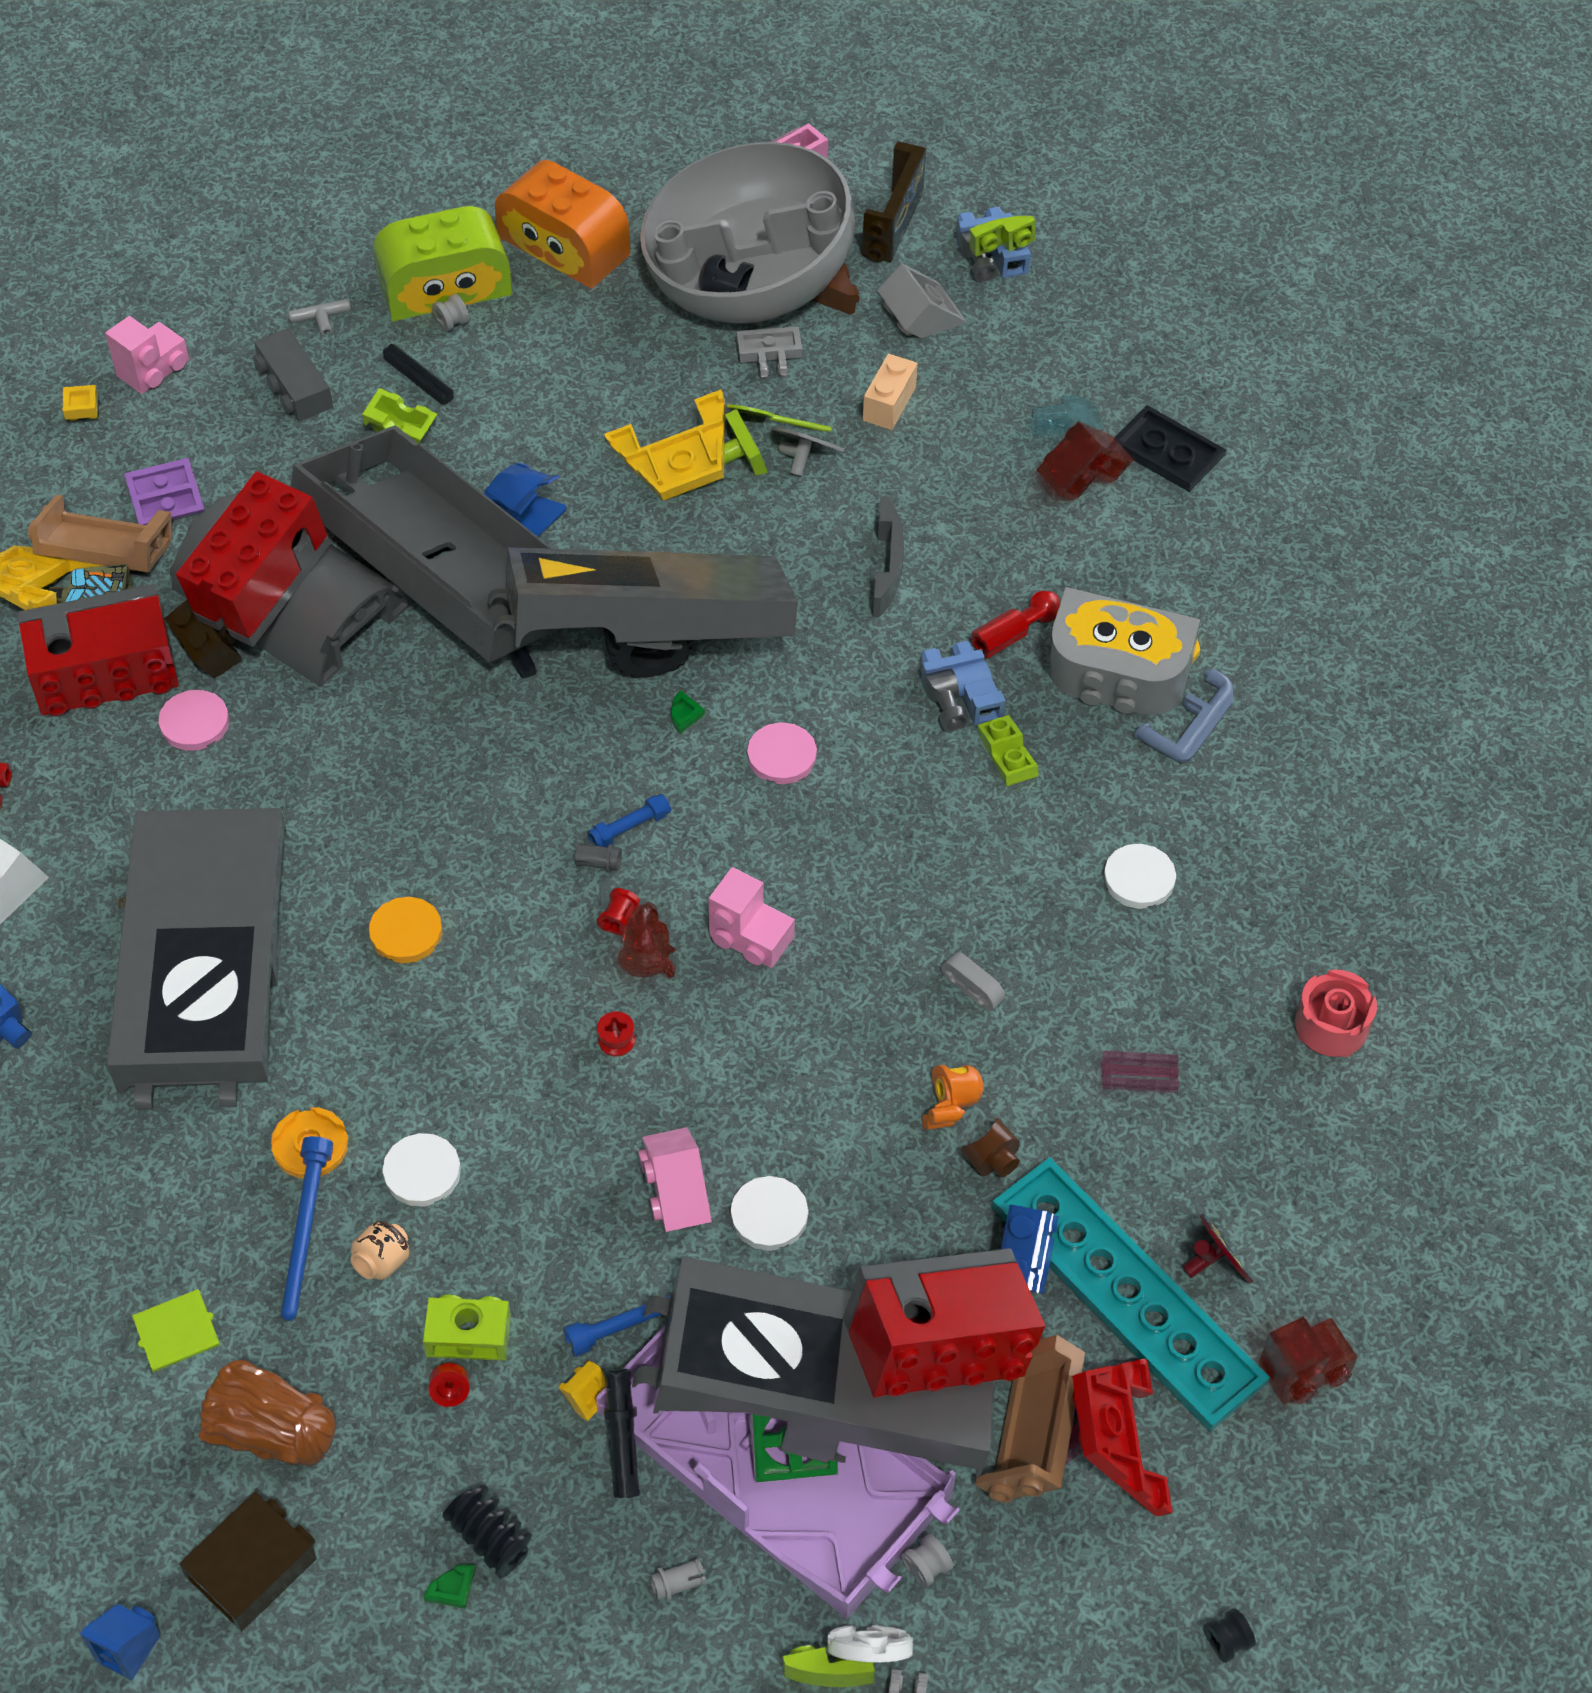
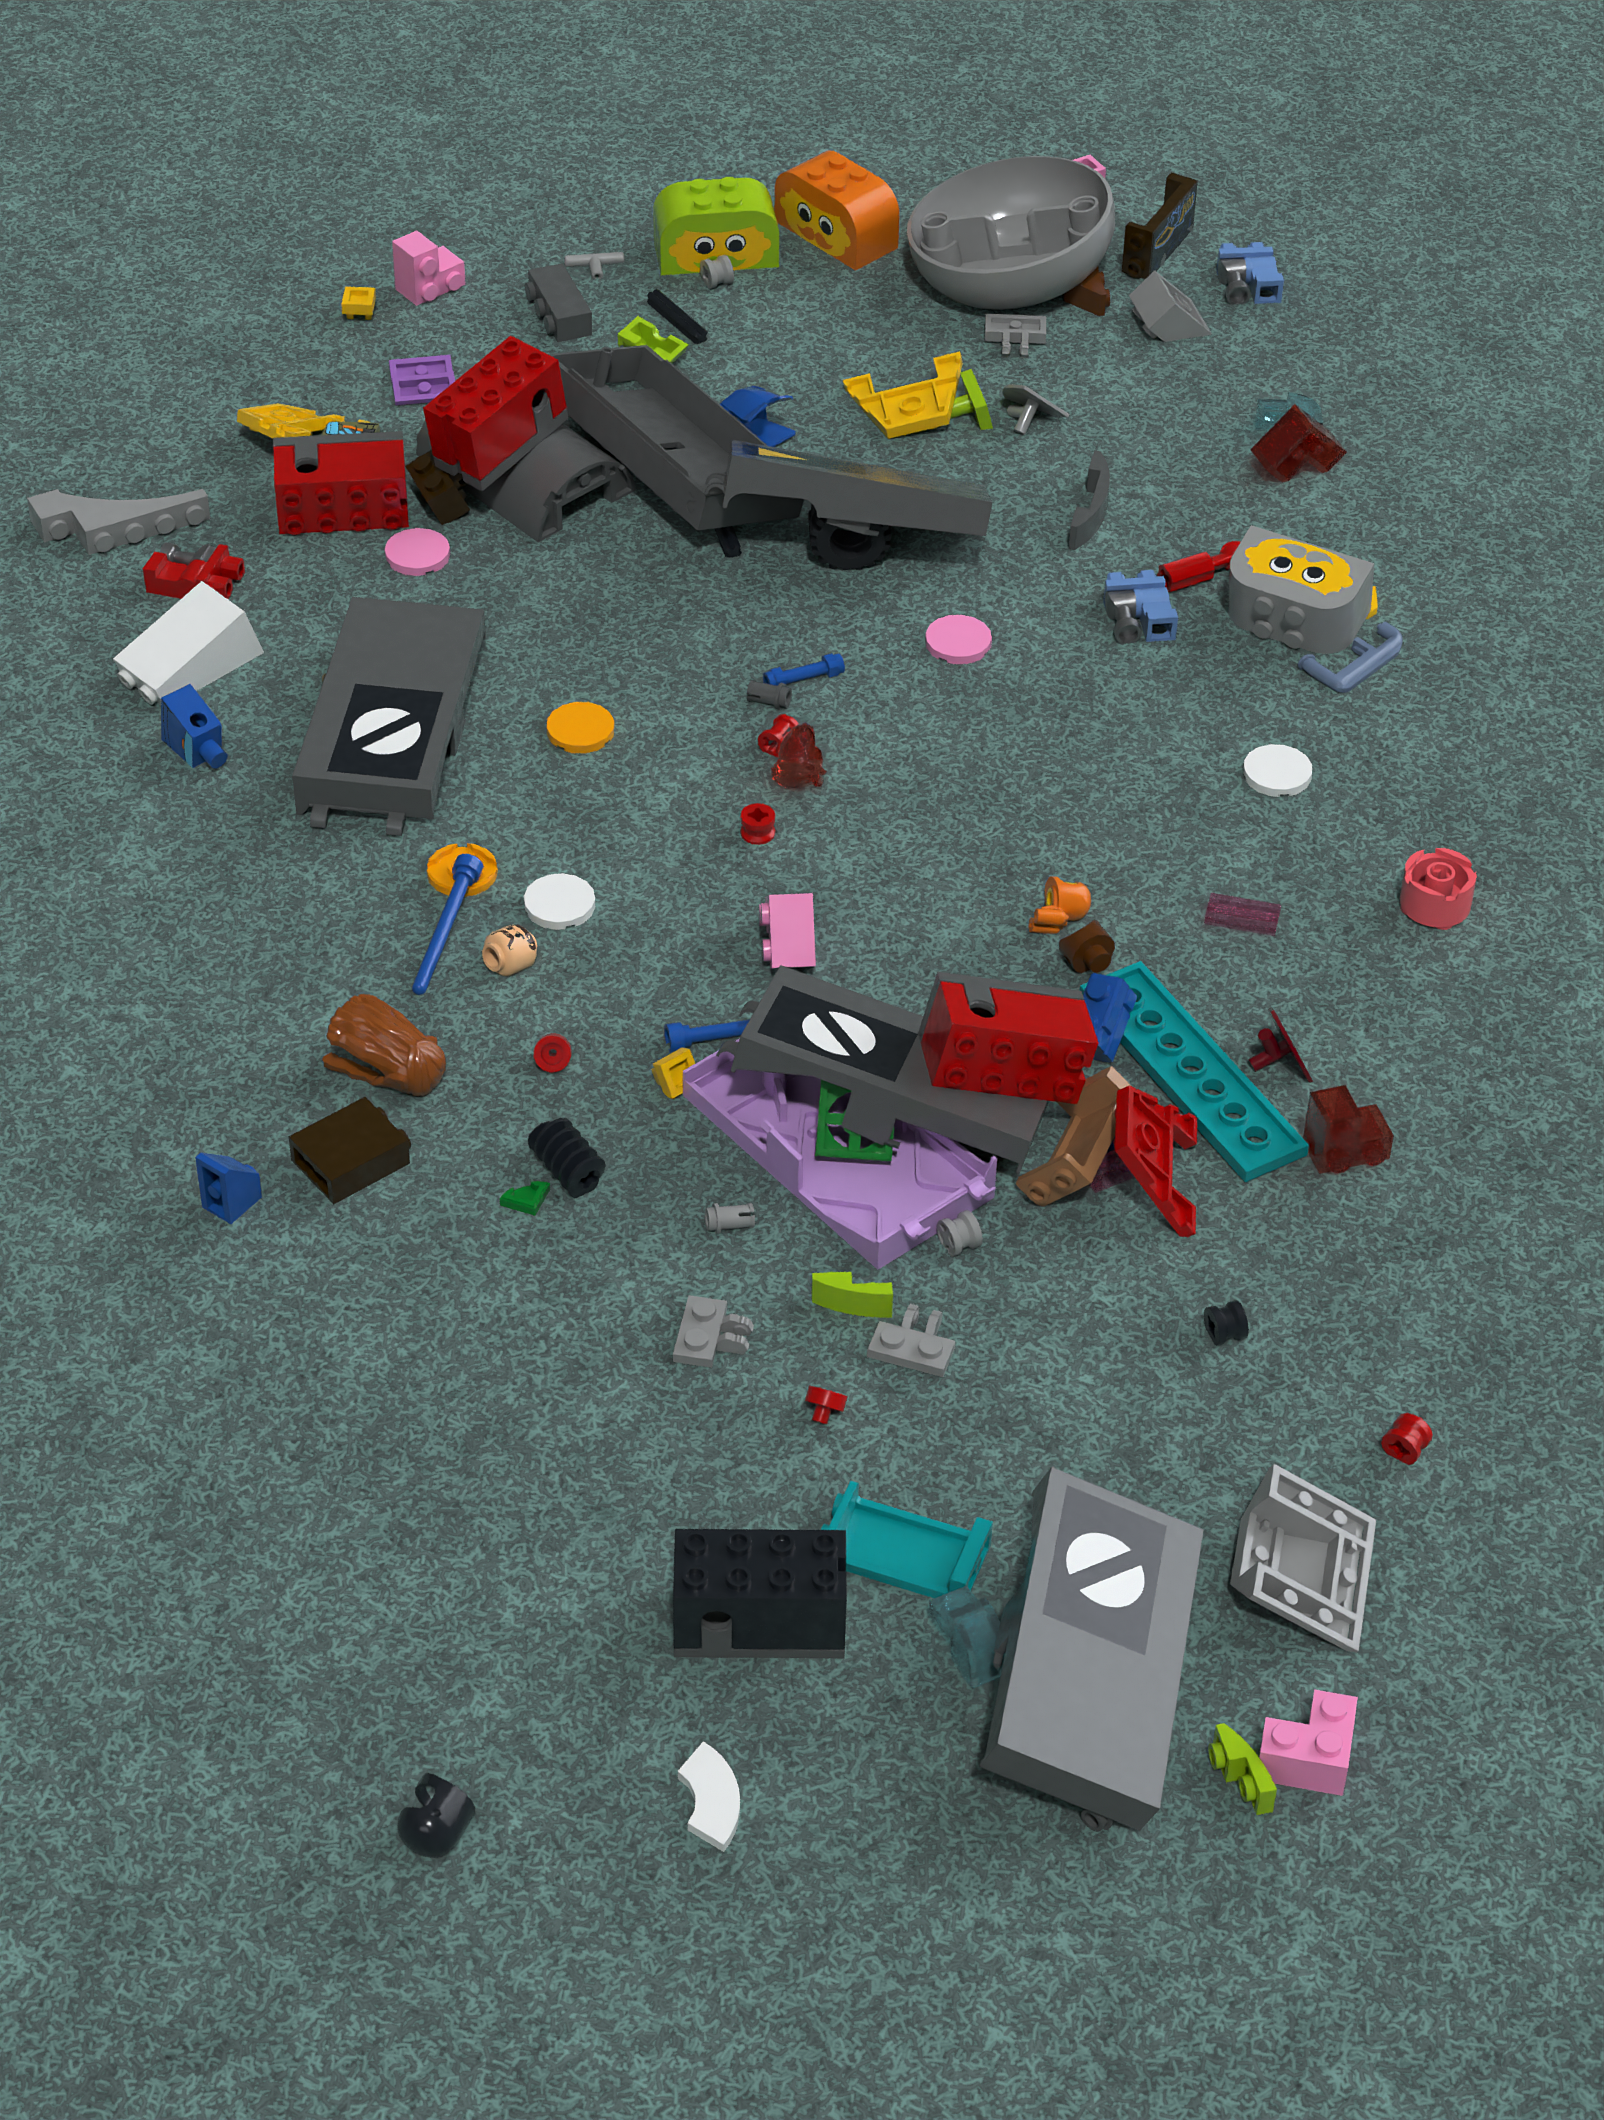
camera: 10 degrees right, 10 degrees down
(99, 539) = (318, 396): medium nougat panel -> none
(175, 1330) = (315, 987): lime piece -> none
(484, 1342) = (577, 1014): lime brick -> none
(620, 1417) = (700, 1104): black pin -> none
(685, 712) = (874, 598): green tile -> none
(716, 277) = (973, 257): black helmet -> none
(746, 923) = (892, 751): bright pink brick -> none
(753, 411) = (988, 376): lime piece -> none
(769, 1213) = (872, 971): white tile -> none
(870, 1645) = (903, 1278): white tile -> none
(890, 391) = (1123, 375): light nougat brick -> none
(973, 981) = (1100, 826): light grey beam -> none
(1006, 749) = (1173, 661): lime slope -> none
(1010, 231) = (1265, 257): lime slope -> none
(1169, 448) = (1386, 451): black tile -> none

